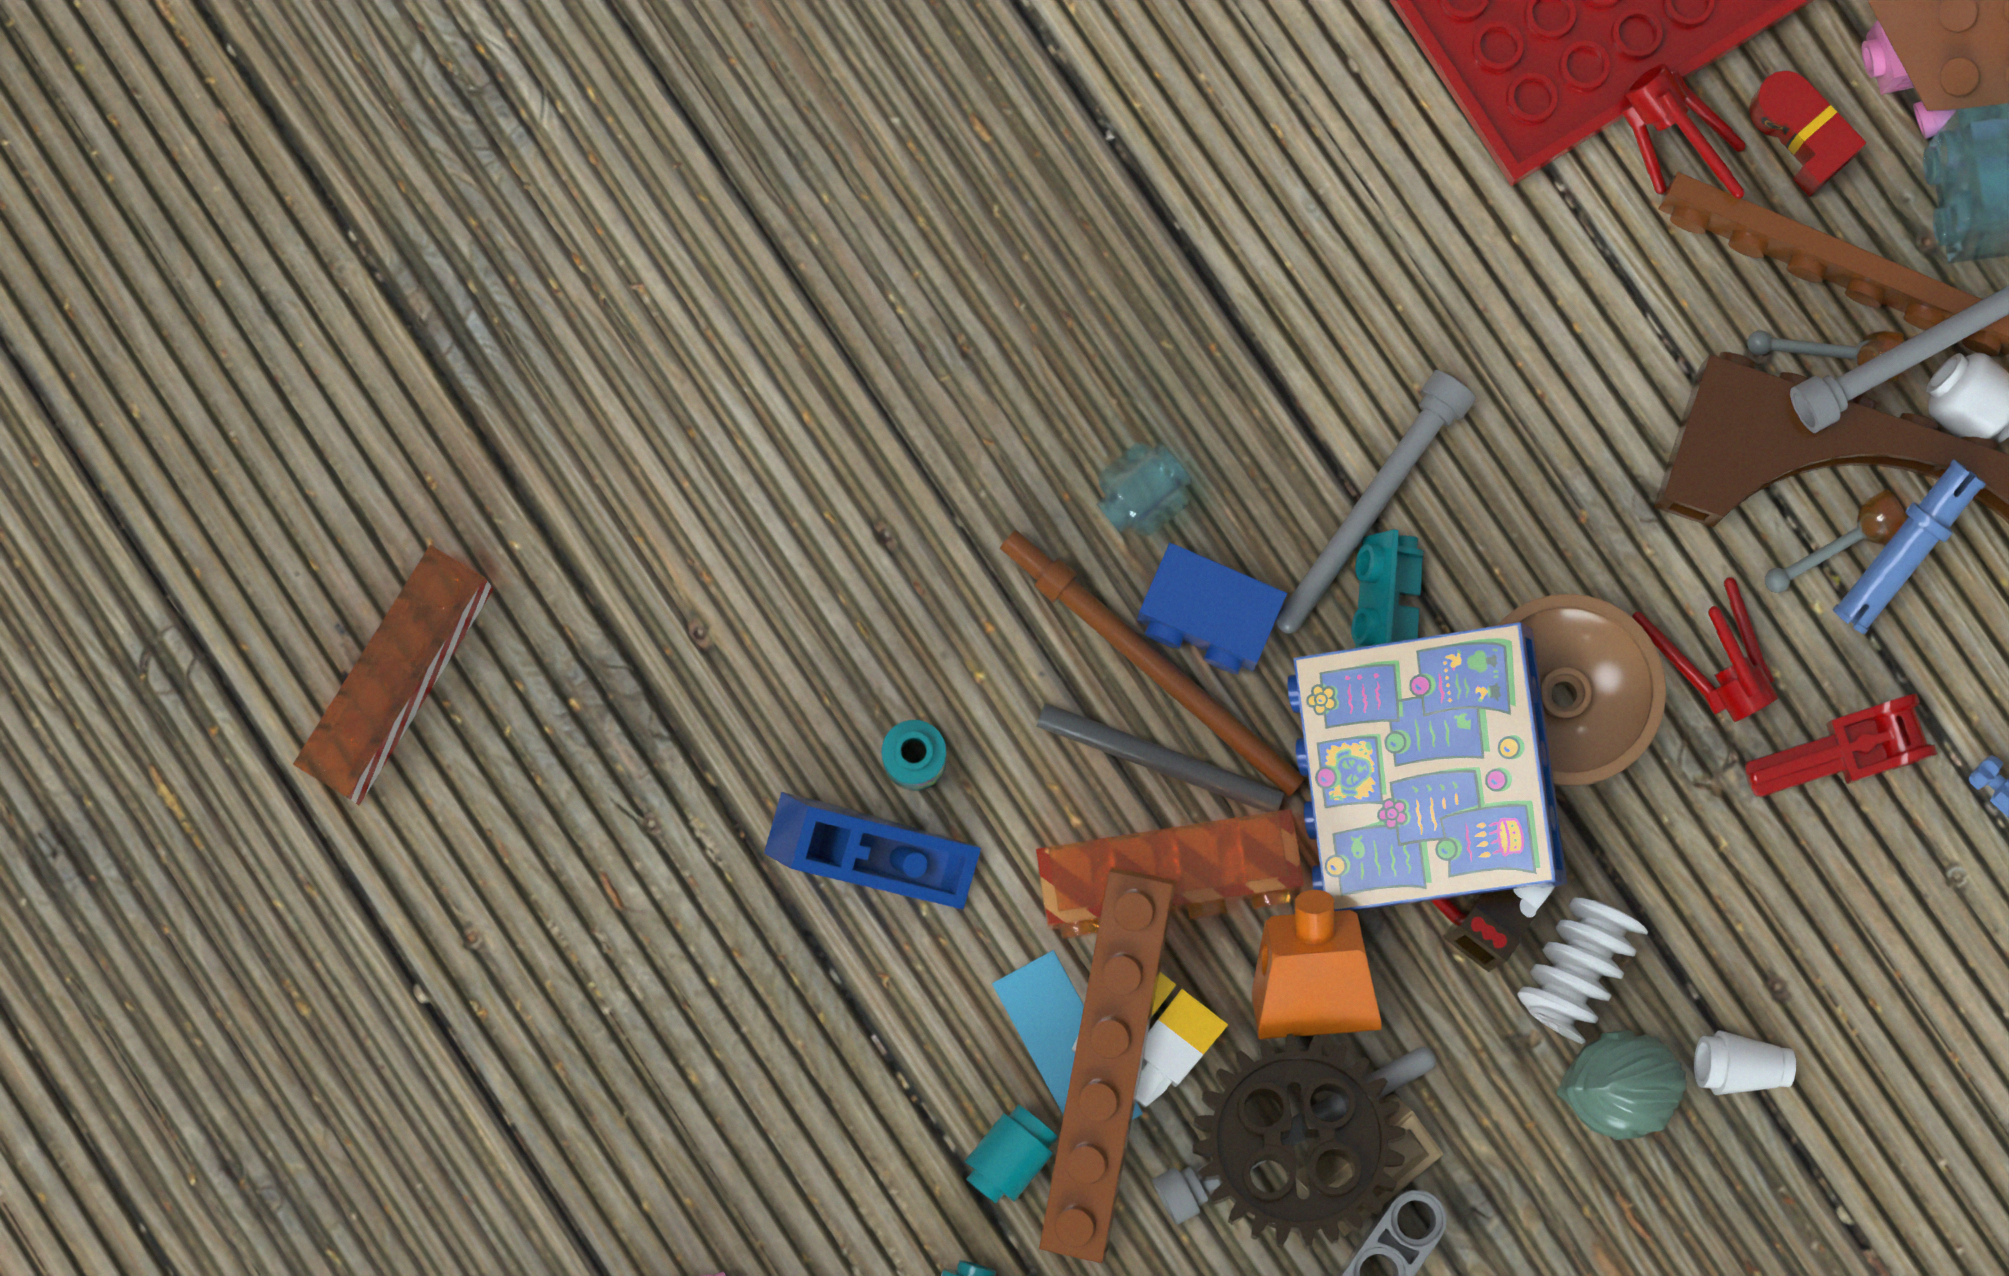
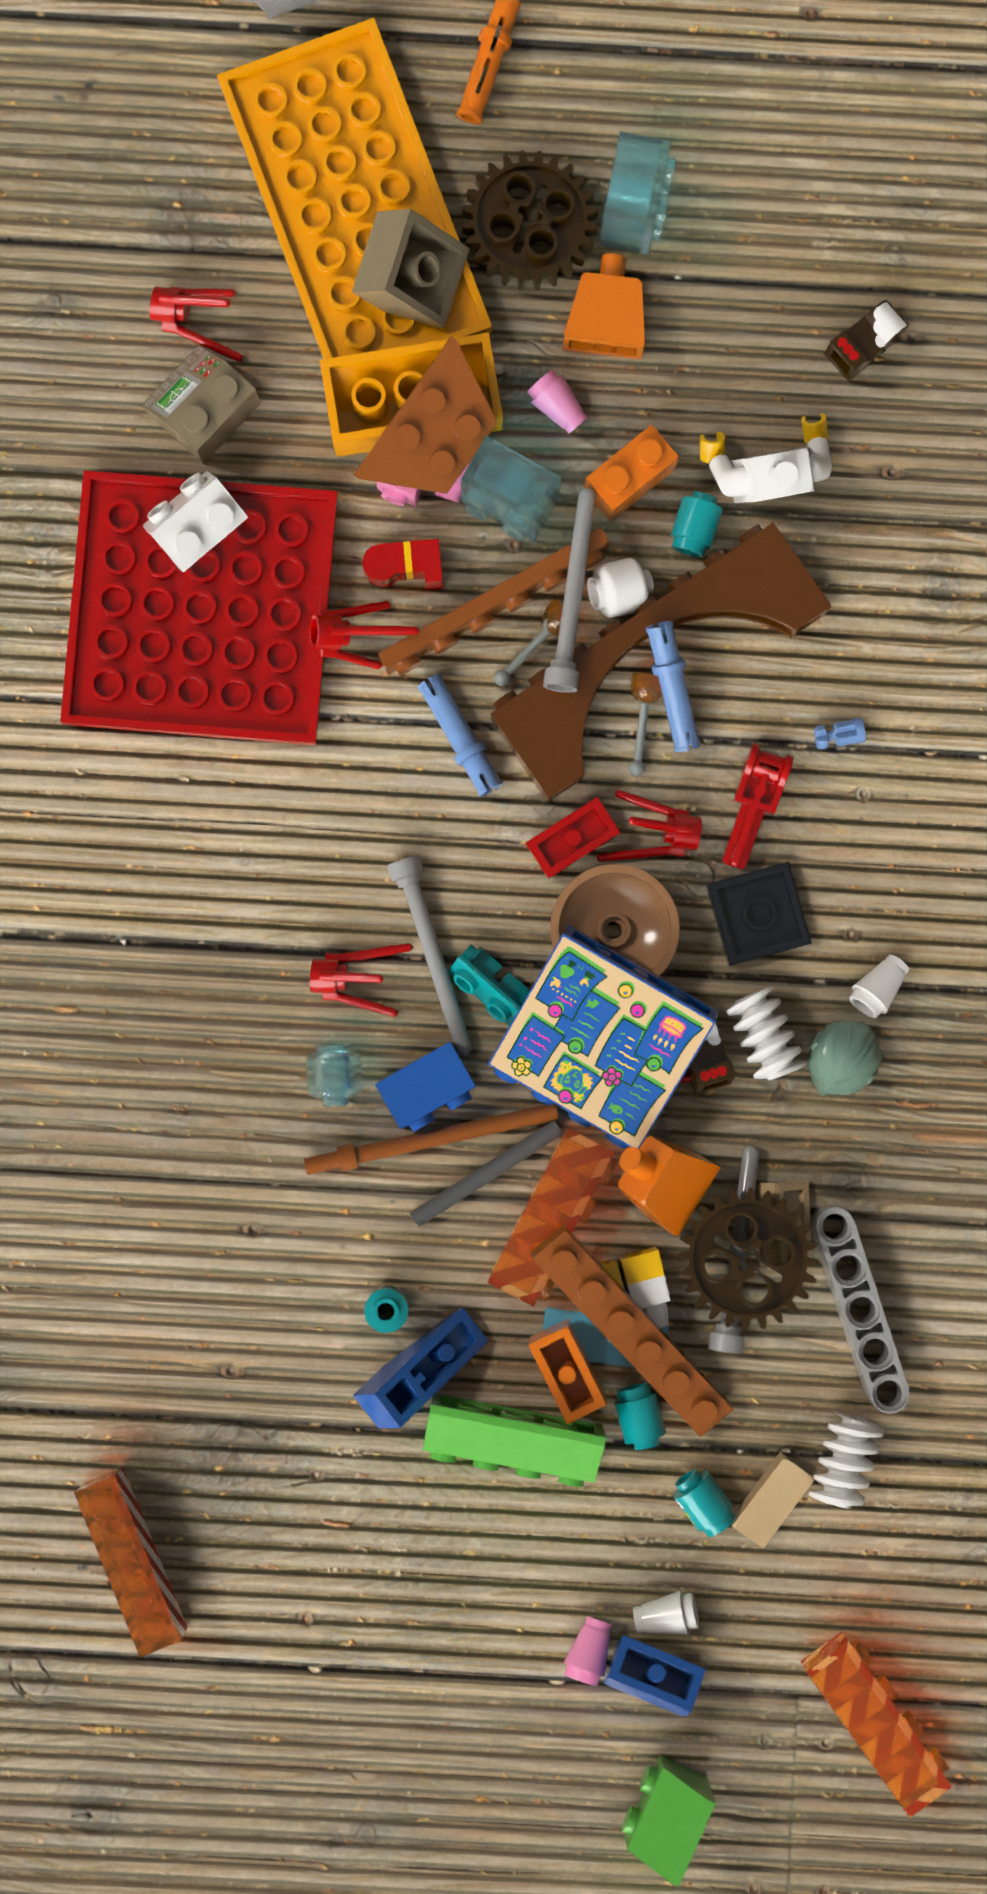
camera: 55 degrees left, 5 degrees up
(870, 1019) = (514, 1439): none -> slope
(1001, 1023) = (567, 1371): none -> orange brick
(1258, 402) = (330, 976): none -> red plant
(1636, 564) = (572, 838): none -> red plate
(1644, 365) = (459, 734): none -> medium blue pin
(1716, 855) = (758, 914): none -> black tile

